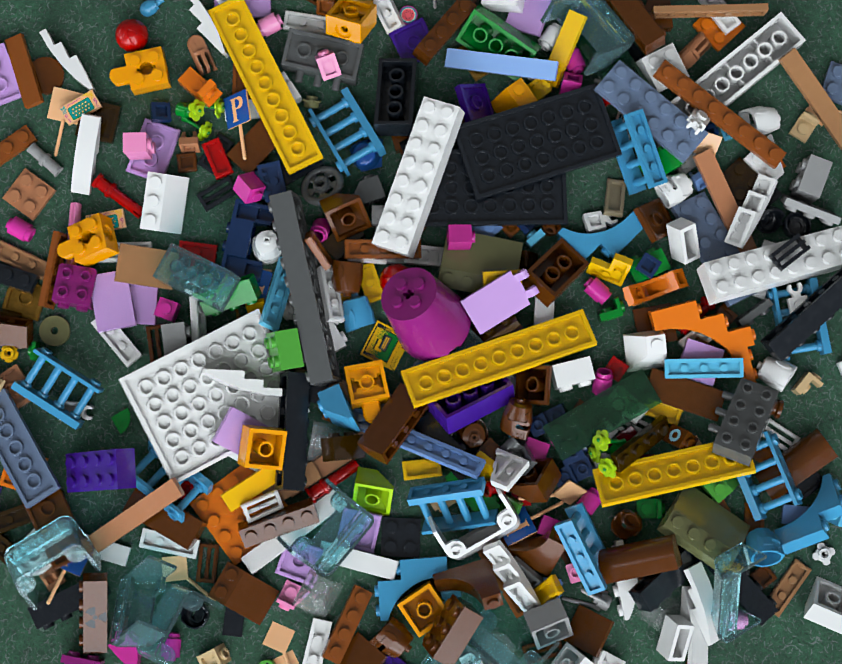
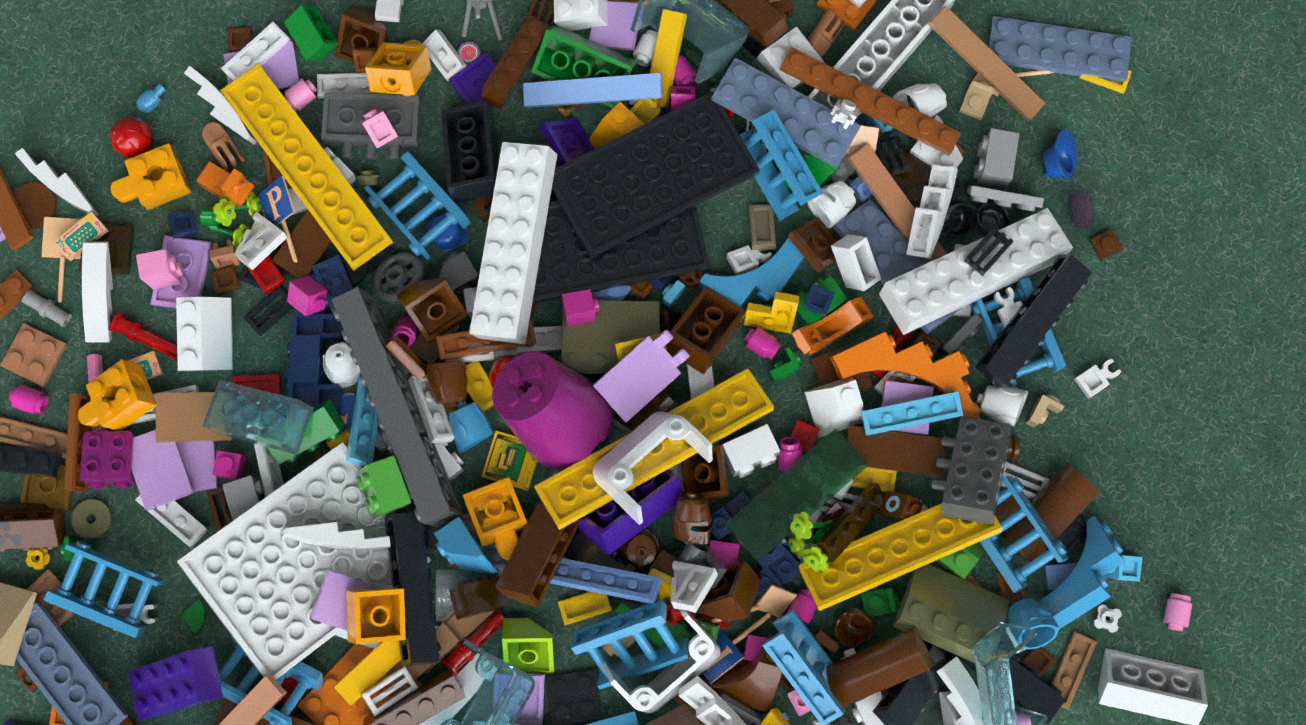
camera: 10 degrees left, 5 degrees down
(219, 138) = (259, 241): none -> white wing
(465, 369) = (614, 470): none -> white windscreen
(602, 531) = (826, 642): none -> reddish brown tile
(727, 144) = (887, 137): none -> black tile

